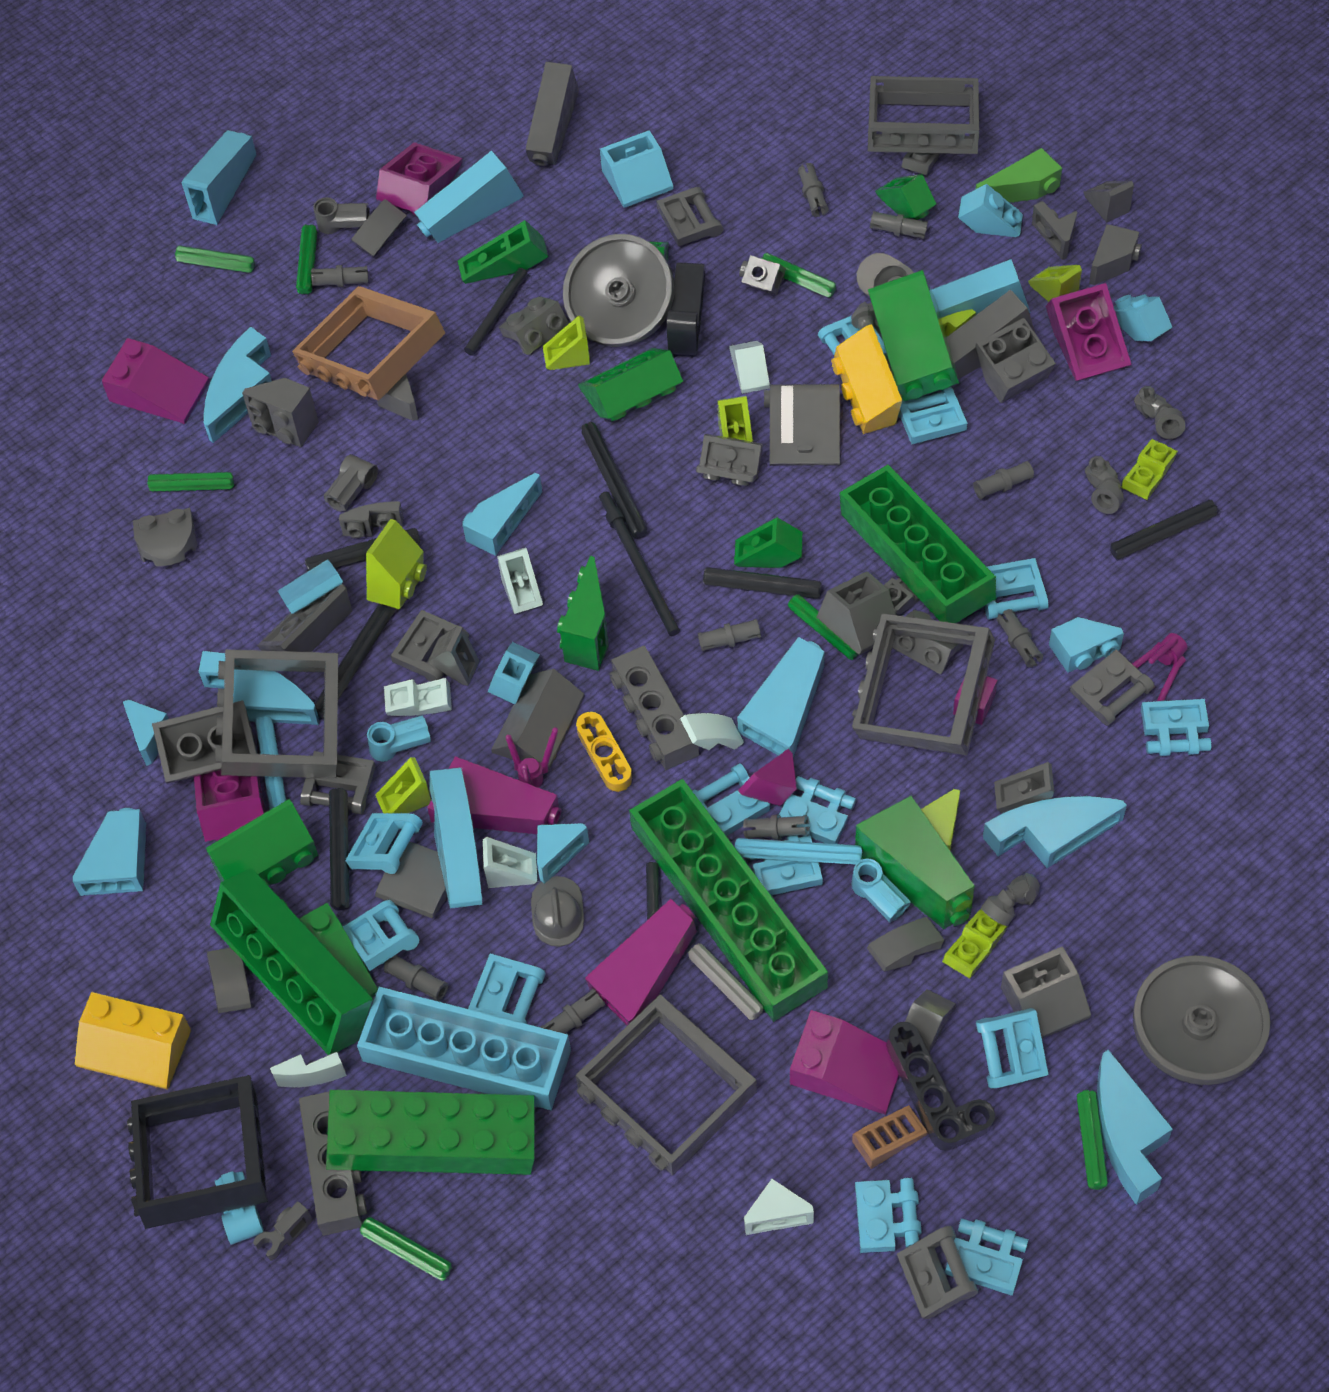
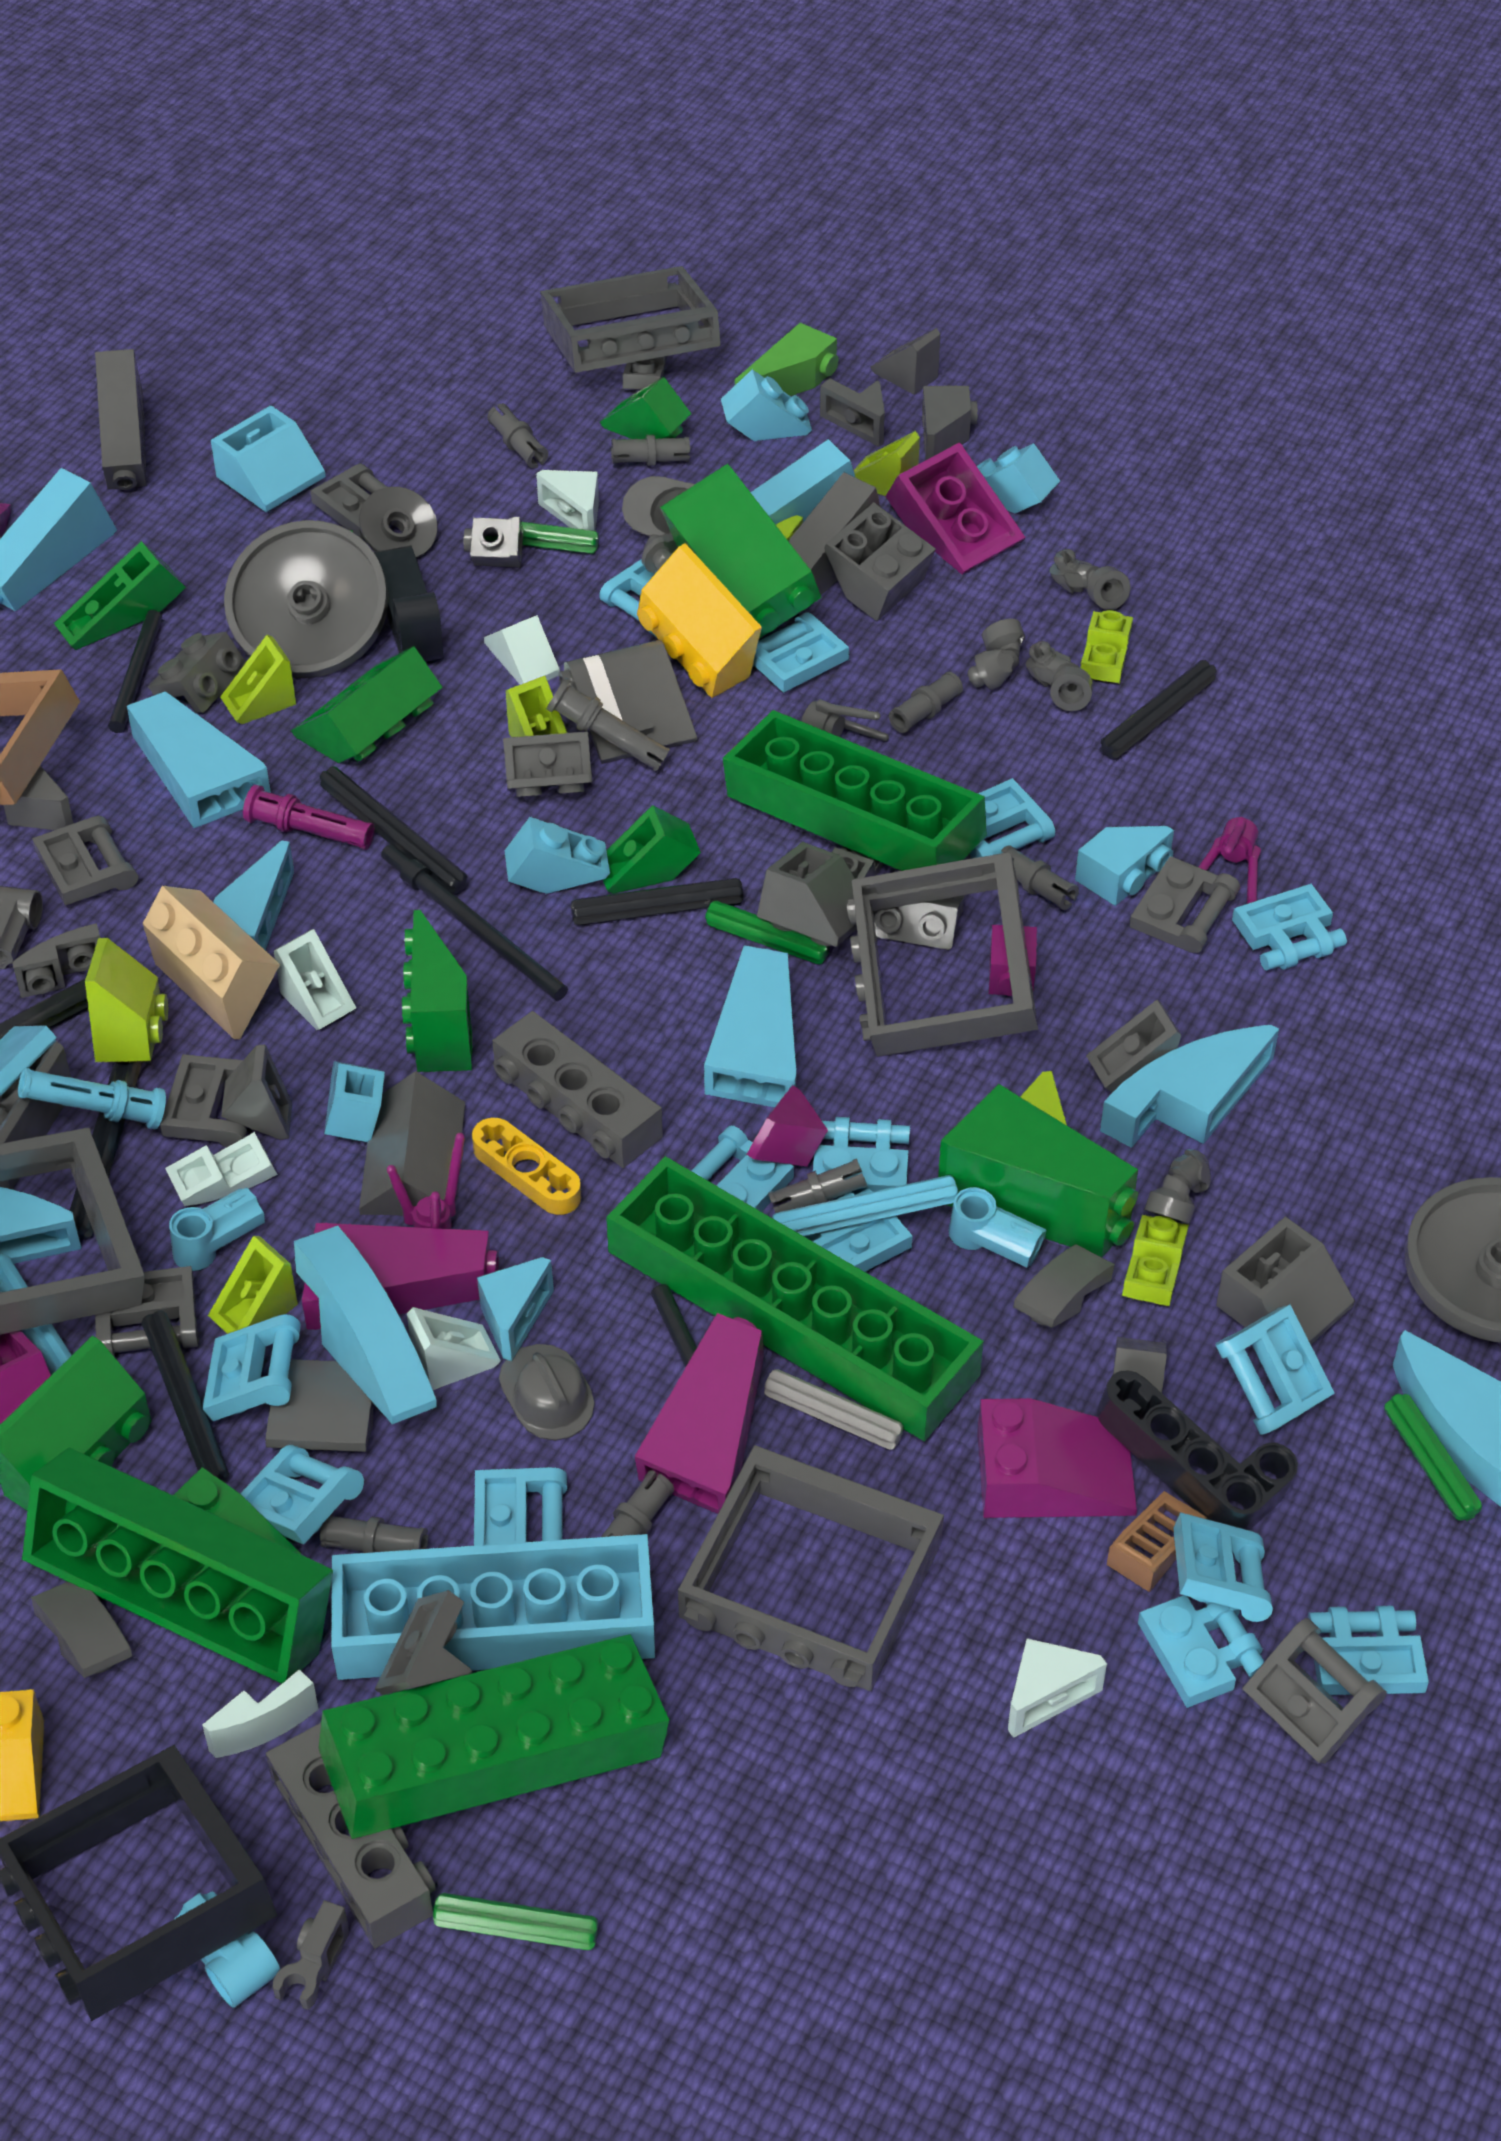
camera: 25 degrees left, 10 degrees down
(369, 629) = (114, 1100): none -> medium azure pin
(399, 1072) = (420, 1651): none -> dark grey slope
(404, 451) = (72, 866): none -> dark grey plate
(460, 545) = (208, 956): none -> tan slope
(508, 396) = (194, 759): none -> medium azure slope
(552, 450) = (290, 814): none -> magenta pin
(705, 229) = (401, 509): none -> dark grey dish
(706, 533) = (554, 858): none -> medium azure slope
(710, 729) = (674, 1092): light aqua slope -> none
(729, 635) = (641, 974): dark grey pin -> none
(767, 432) = (590, 715): none -> dark grey pin
(829, 251) = (570, 496): none -> light aqua slope
(907, 1165) = (1208, 1569): none -> medium azure plate
(929, 478) = (829, 718): none -> dark grey plant
(1062, 465) = (1001, 658): none -> dark grey arm

